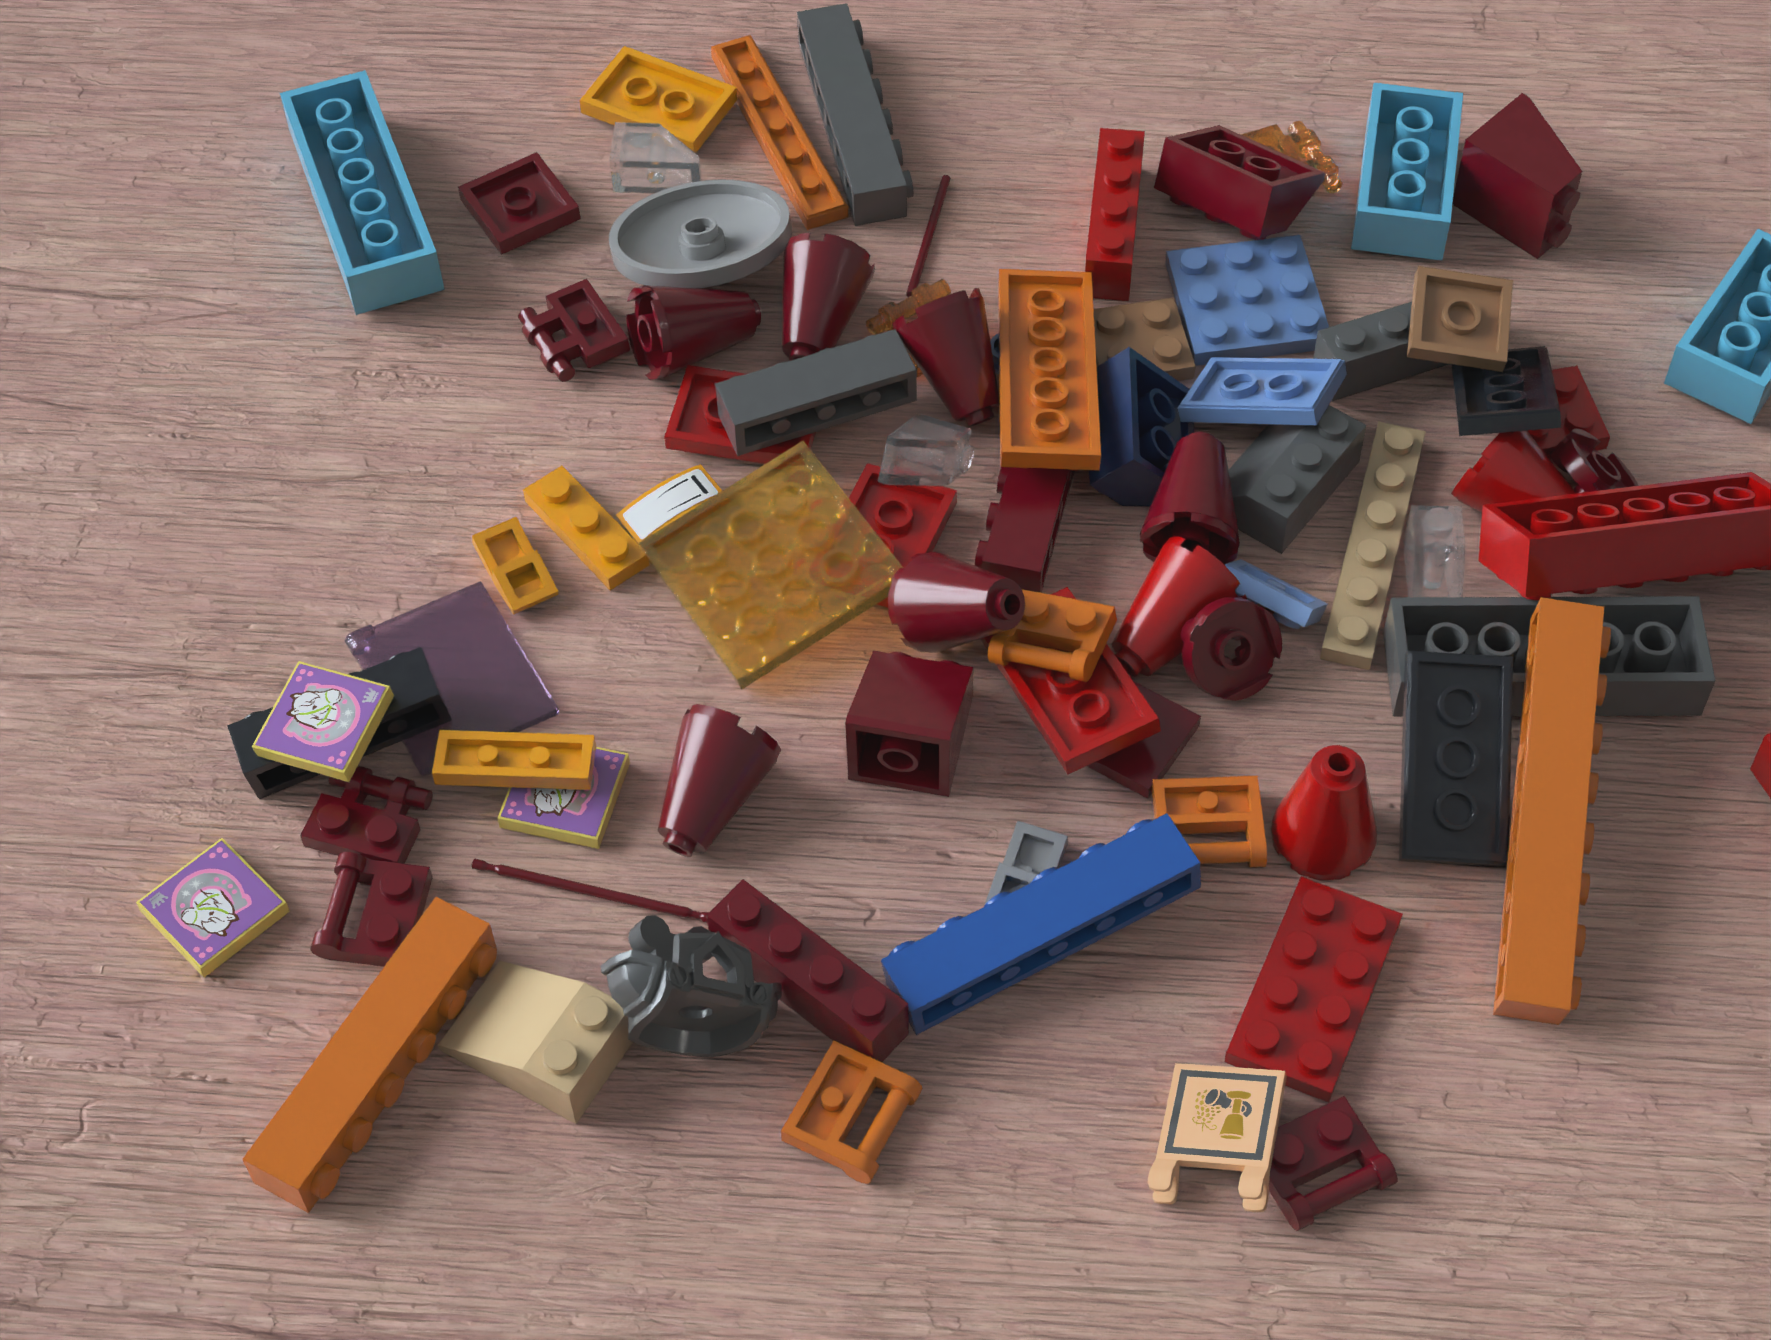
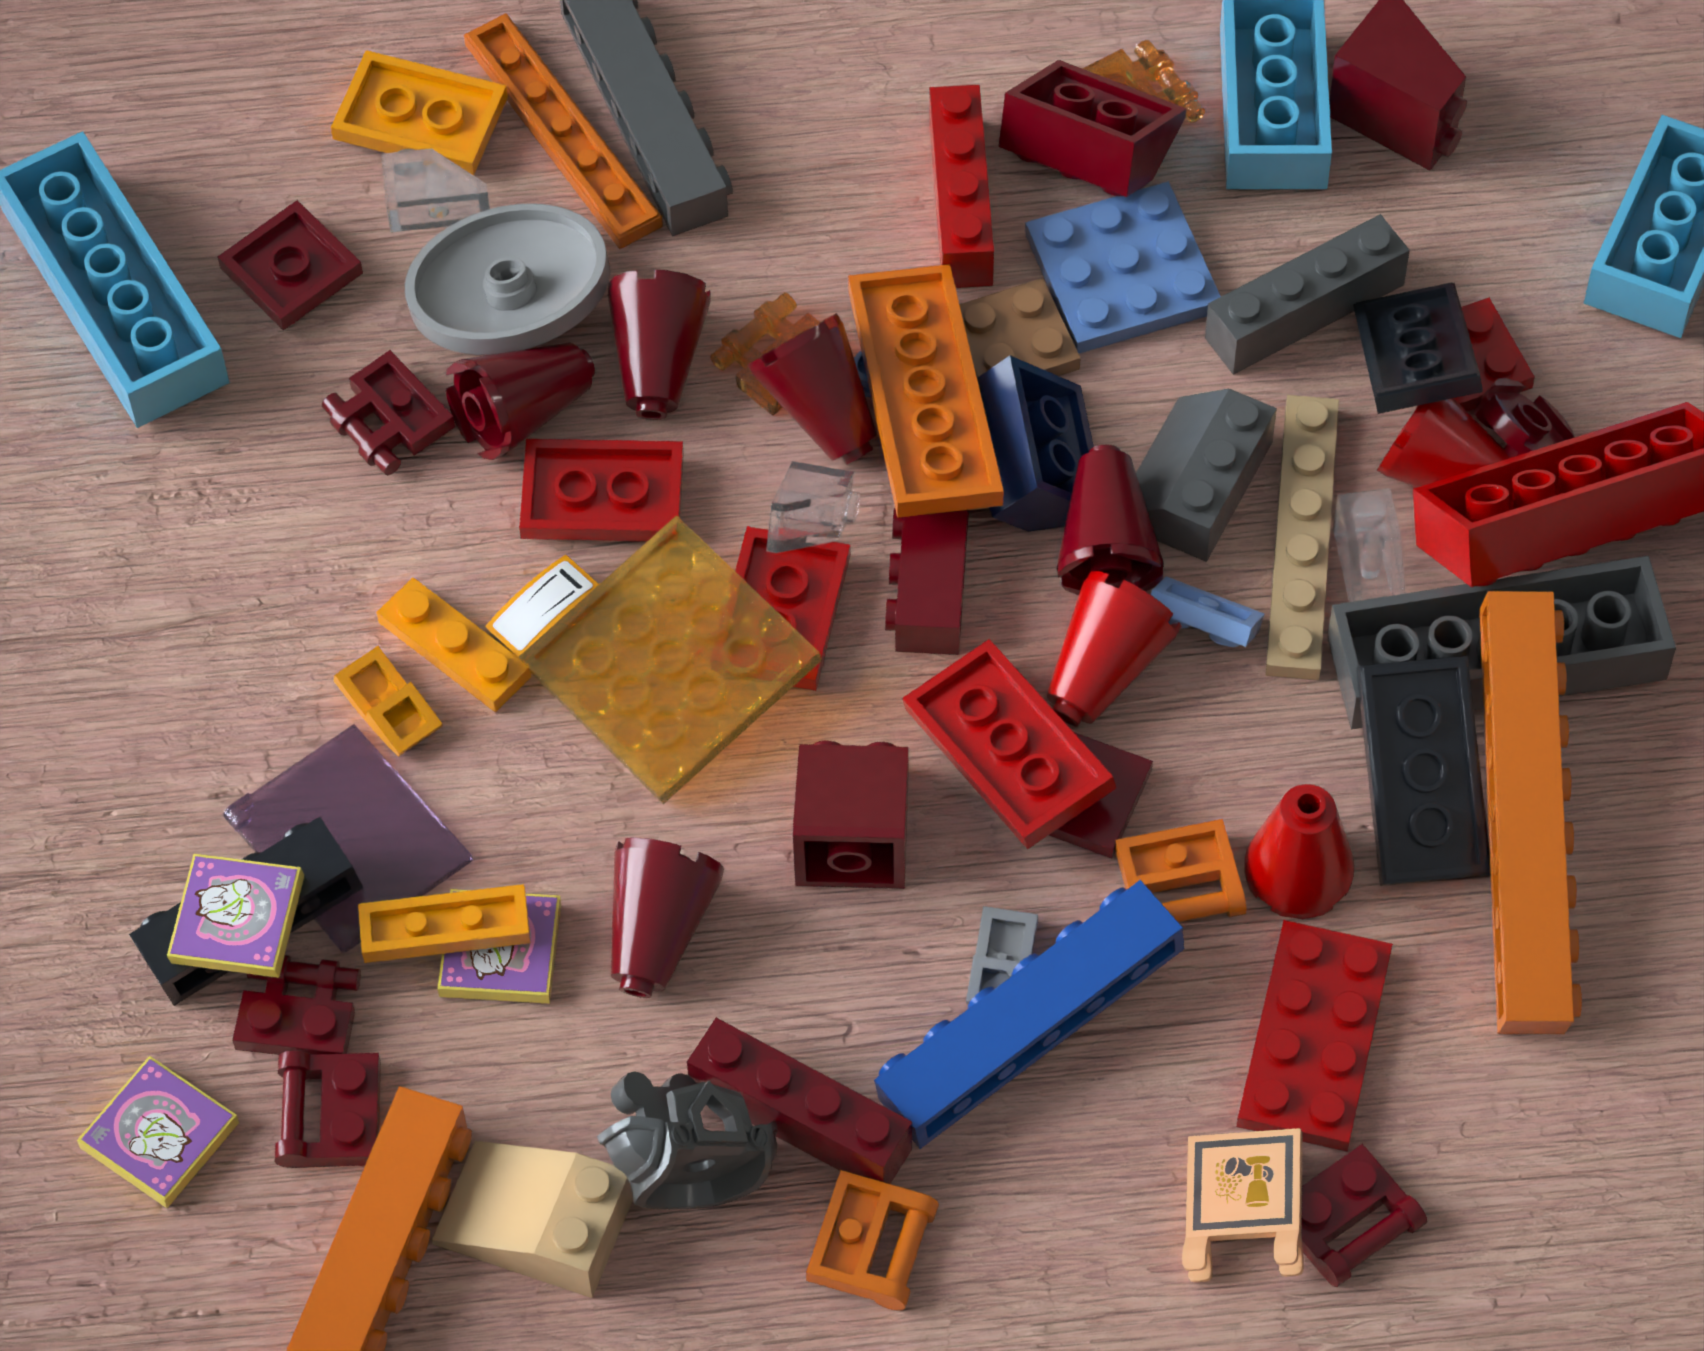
camera: 10 degrees left, 5 degrees up
(589, 890) = (554, 1050): dark red piece -> none
(816, 392) = (678, 454): dark grey brick -> none
(927, 239) = (757, 237): dark red axle -> none
(951, 602) = (873, 679): dark red cone -> none
(1059, 625) = (986, 685): orange plate -> none
(1205, 644) = (1148, 675): dark red plate -> none
(1263, 391) = (1159, 381): medium blue tile -> none
(1460, 318) = (1359, 272): medium nougat plate -> none

